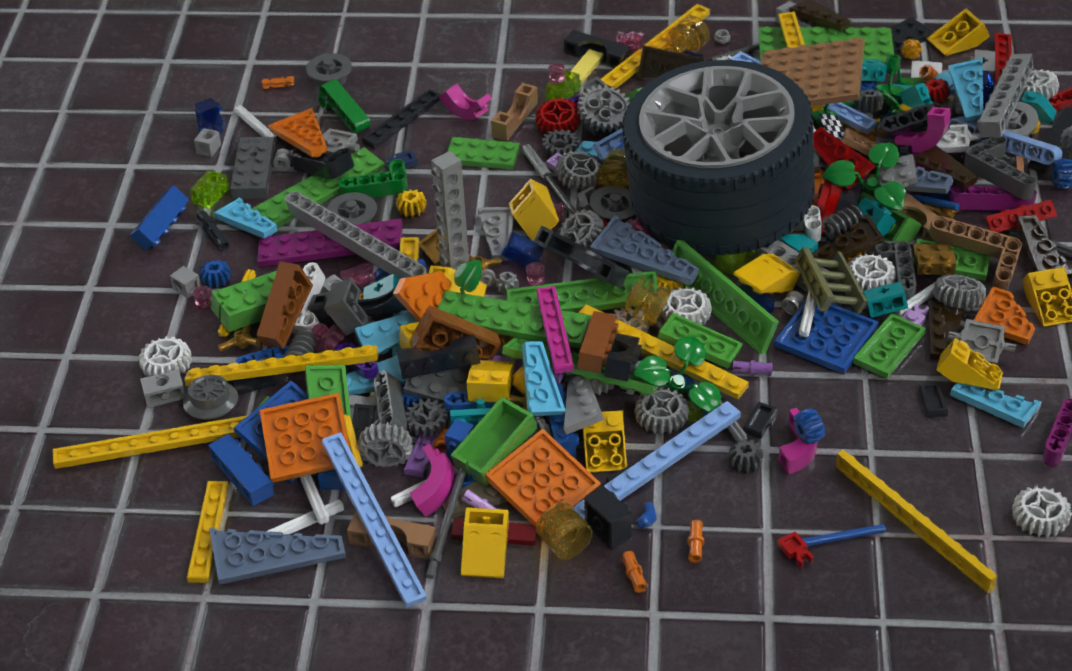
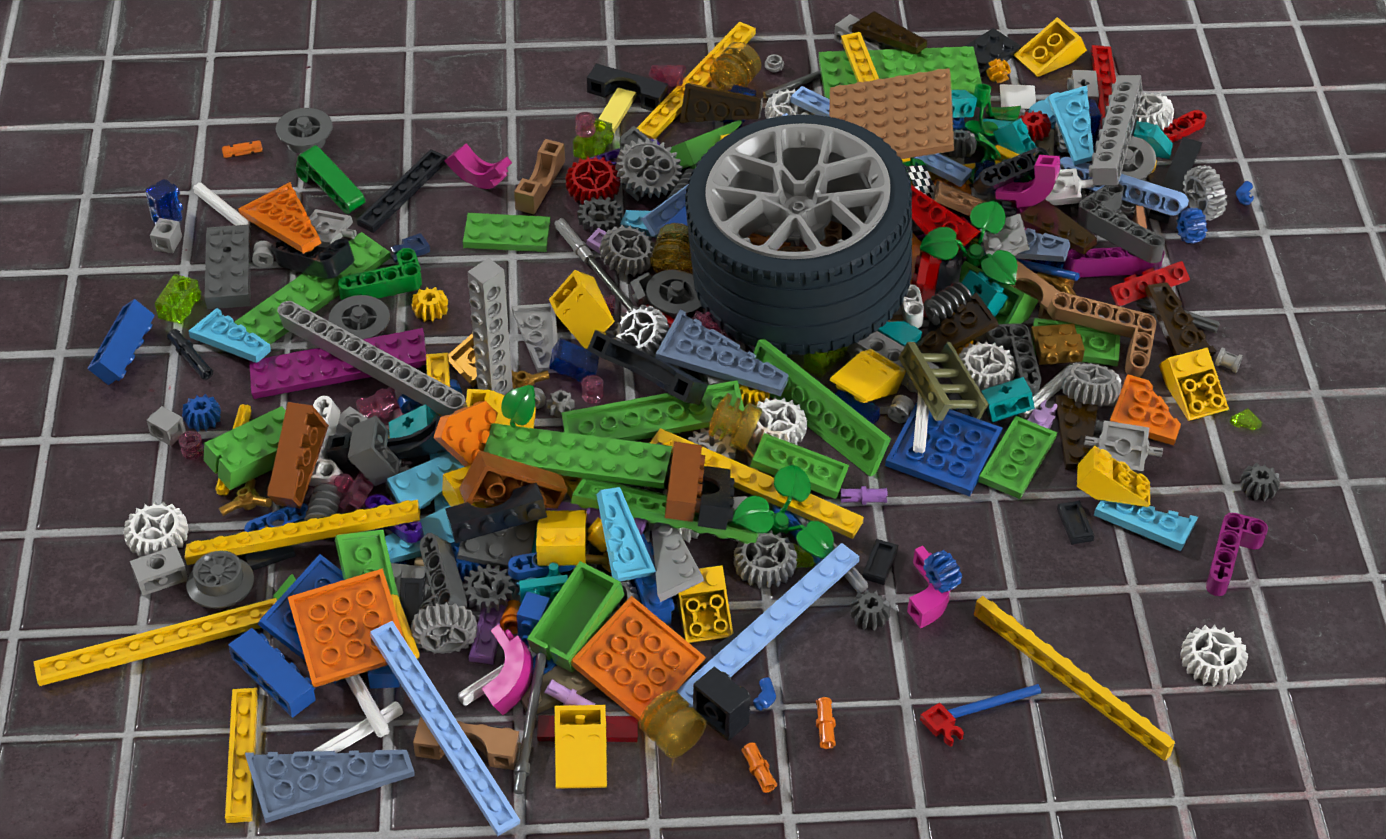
camera: 10 degrees left, 5 degrees up
(555, 330) = (631, 469): dark pink tile -> none
(927, 72) = (1022, 102): orange cone -> none

